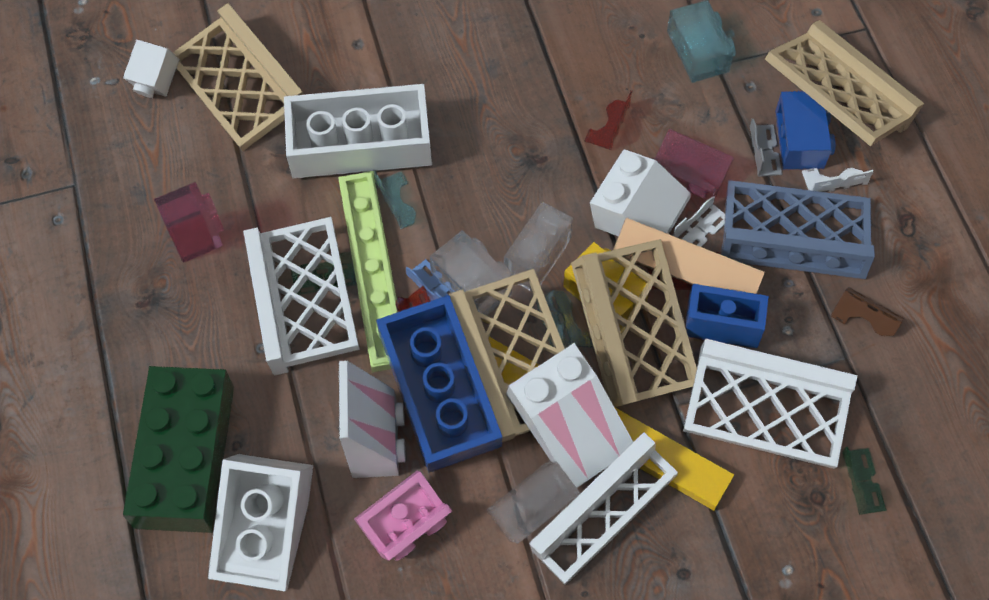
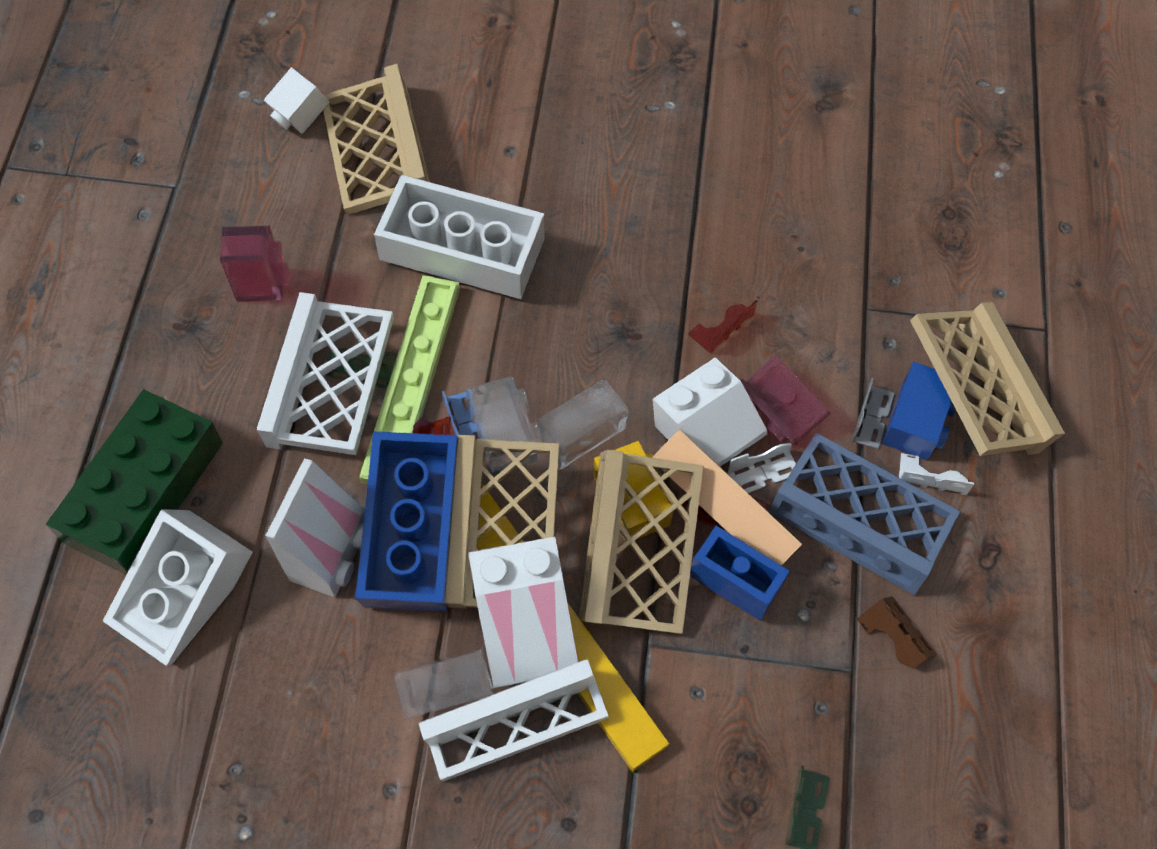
camera: 20 degrees right, 0 degrees up
(391, 189) = (470, 307): clear light blue piece -> none
(403, 517) = (313, 641): bright pink bracket -> none
(565, 308) = (581, 495): clear light blue piece -> none
(700, 41) = (857, 276): clear light blue brick -> none
(777, 371) = (764, 653): white fence -> none

